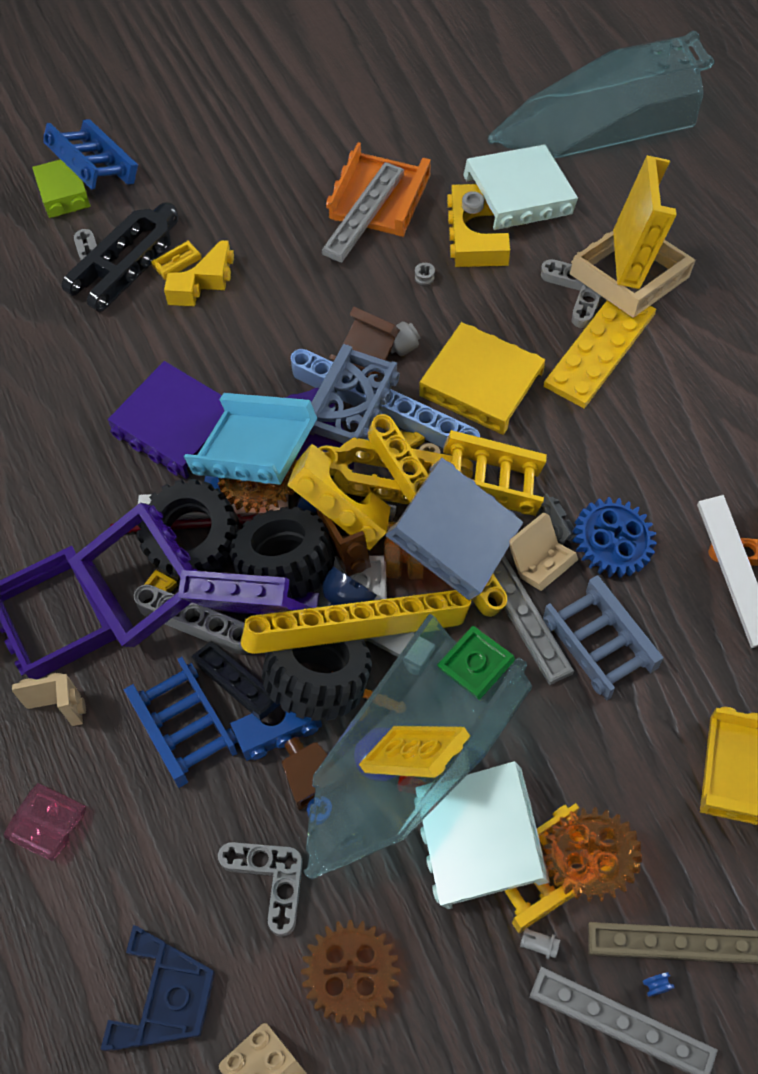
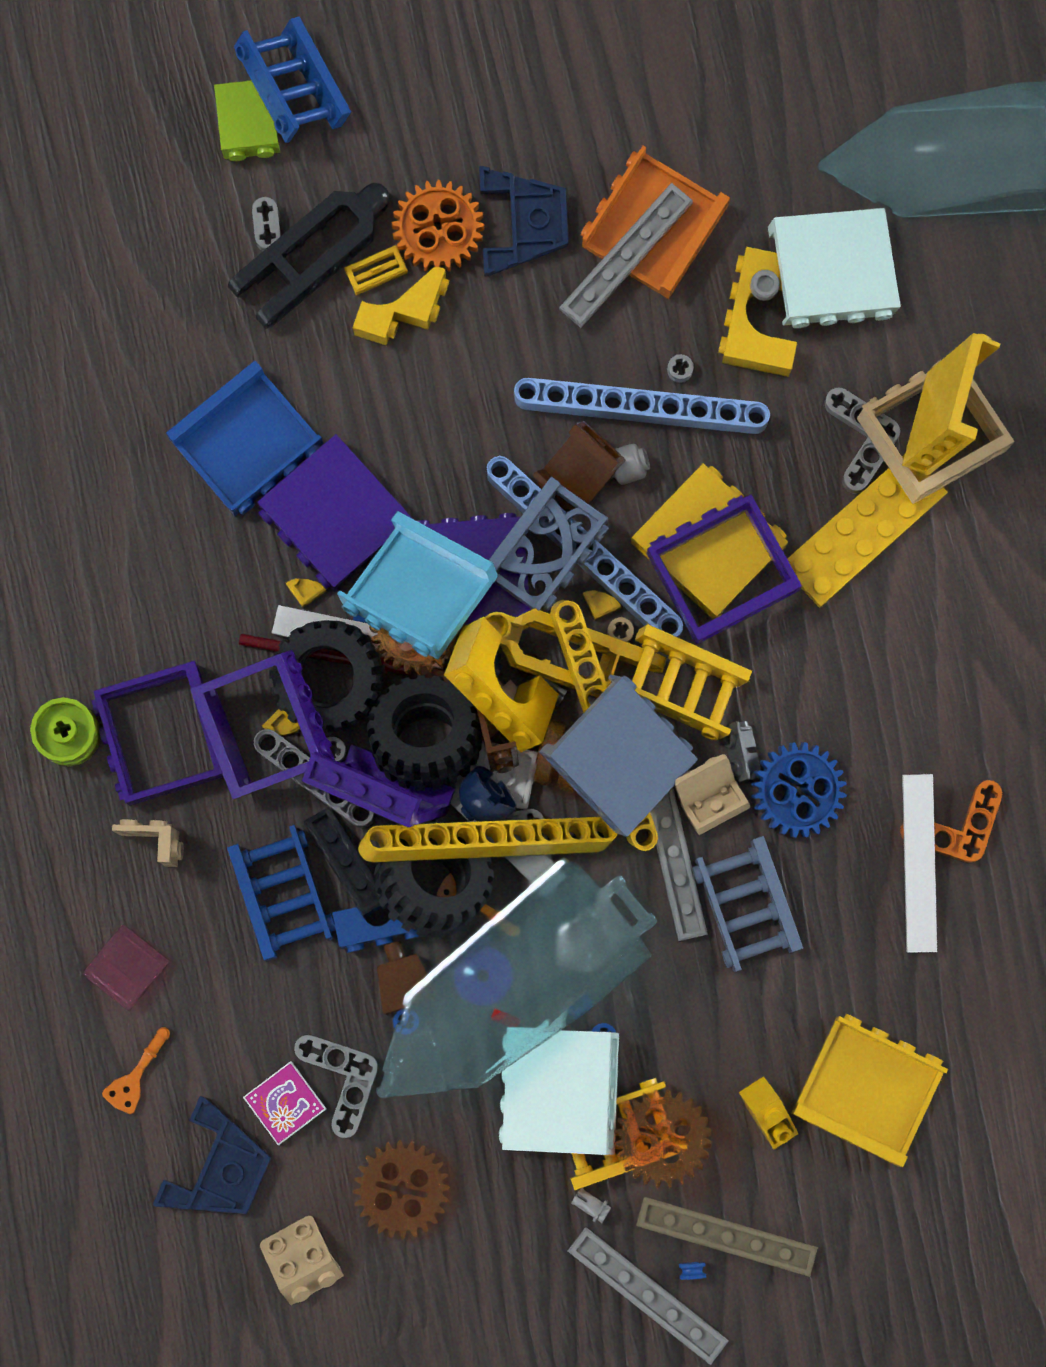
camera: 10 degrees right, 20 degrees up
(65, 928) = (133, 1079): none -> orange piece
(87, 384) = (244, 439): none -> blue panel
(157, 480) = (305, 590): none -> yellow tile
(217, 220) = (431, 202): none -> orange gear
(218, 915) = (284, 1103): none -> tile
(291, 205) = (536, 218): none -> dark blue wing
(403, 299) = (655, 400): none -> light blue beam
(415, 751) = (511, 1001): yellow plate -> none
(476, 662) = (602, 909): green plate -> none
(506, 337) = (712, 519): none -> dark purple window
(681, 812) = (768, 1112): none -> yellow slope

